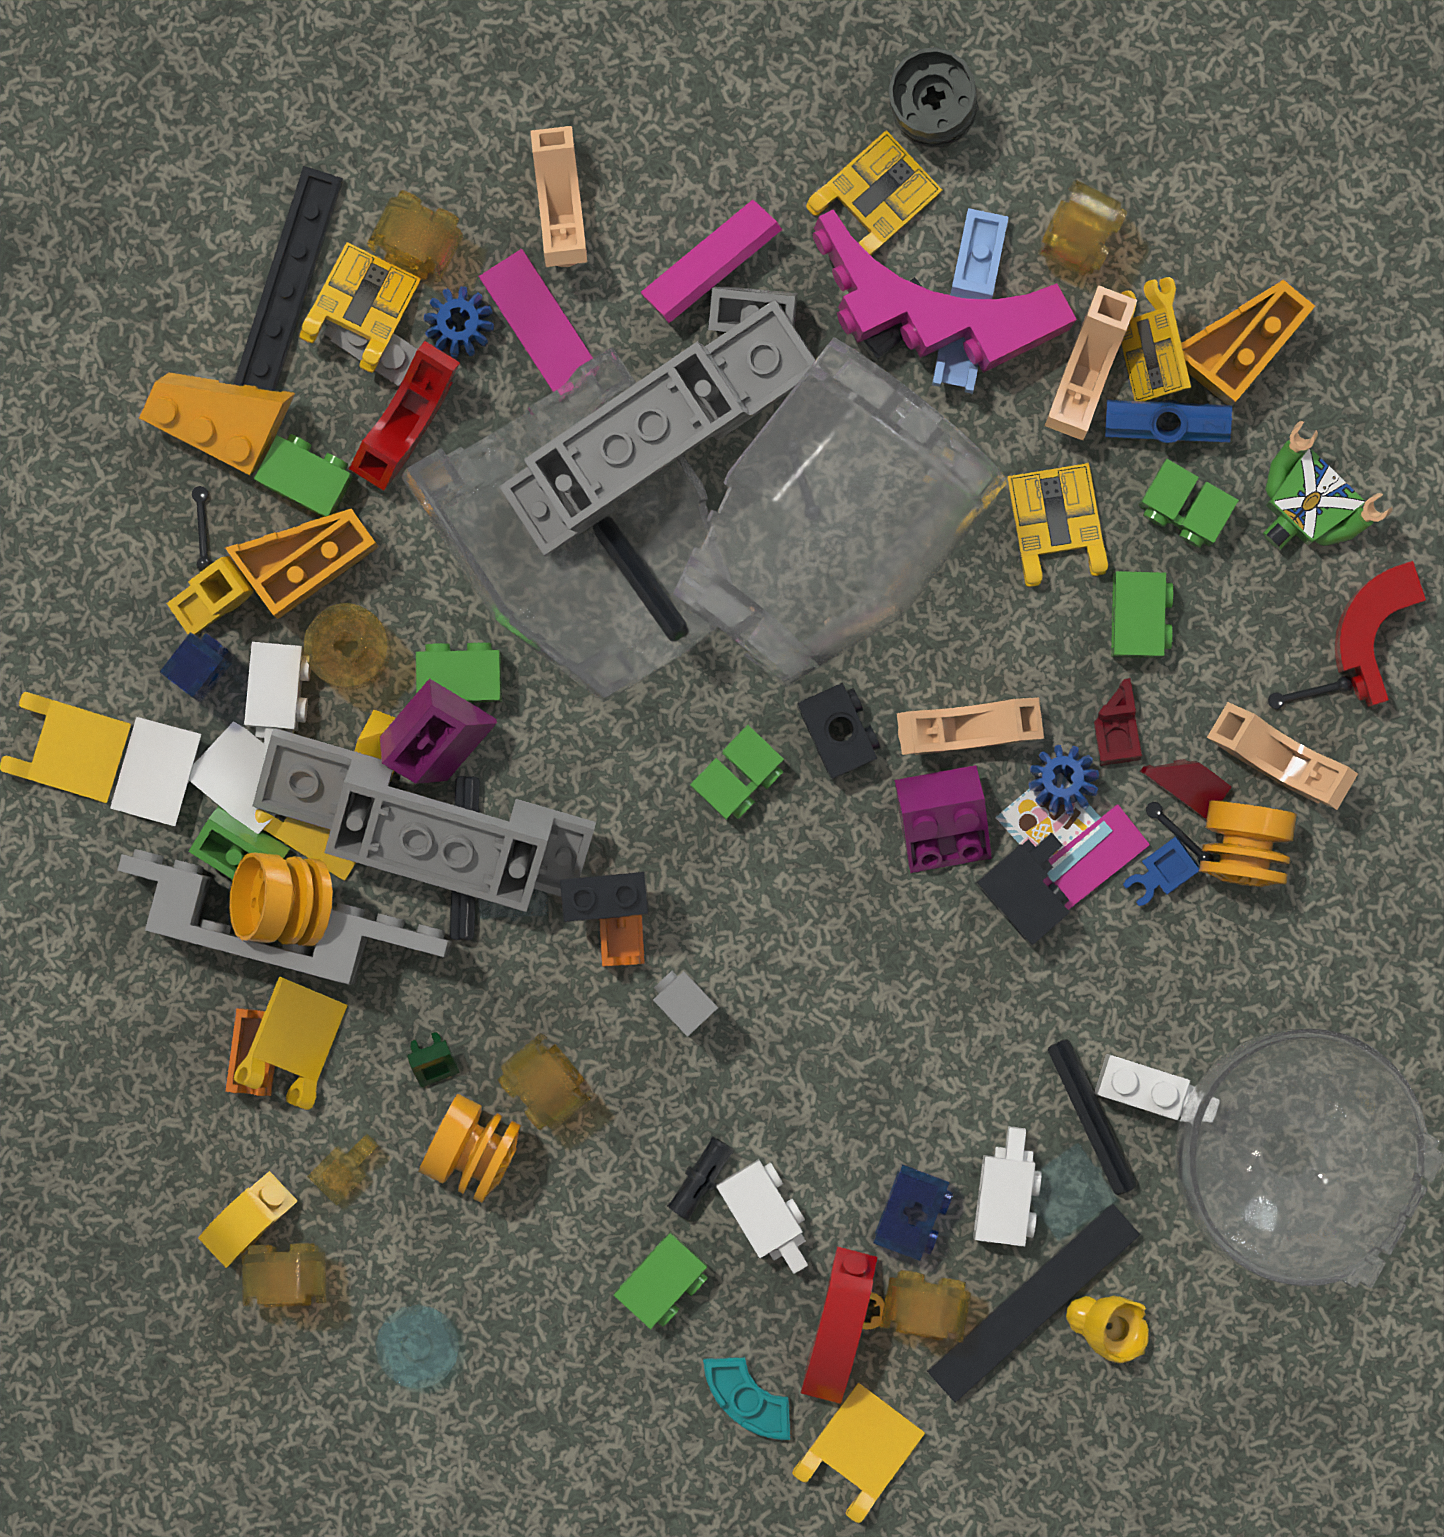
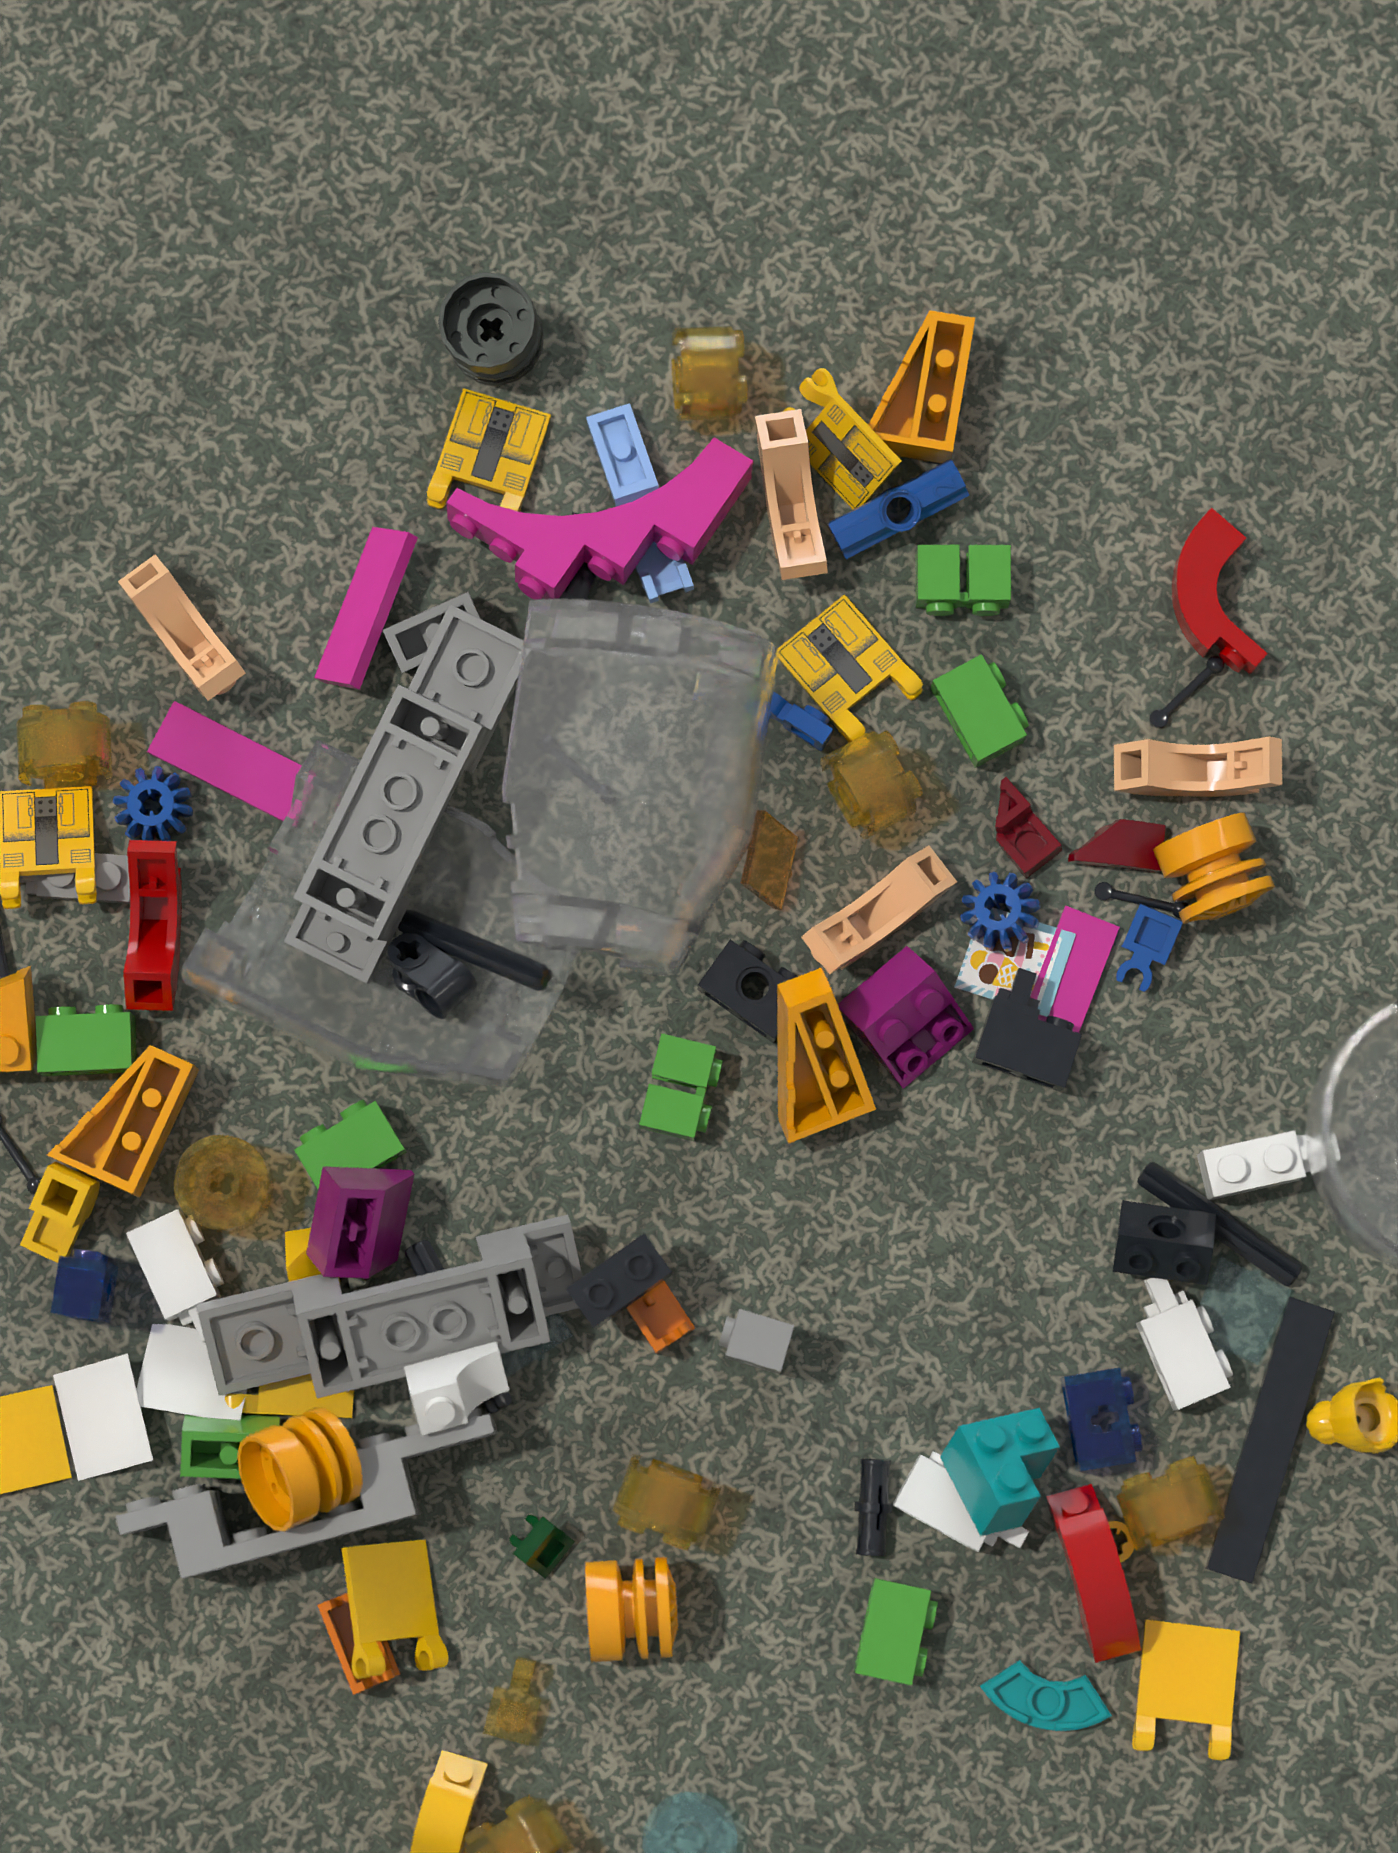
camera: 30 degrees left, 5 degrees down
(433, 903) = (454, 1385): none -> white arch
(595, 577) = (429, 974): none -> black piece
(811, 1200) = (995, 1467): none -> teal brick
(853, 816) = (816, 1060): none -> light orange wedge
(908, 638) = (769, 860): none -> clear orange piece
(999, 548) = (805, 723): none -> blue plate
(1022, 624) = (871, 783): none -> clear yellow brick
(1040, 1107) = (1164, 1242): none -> black brick
(1313, 498) = (1080, 503): torso -> none

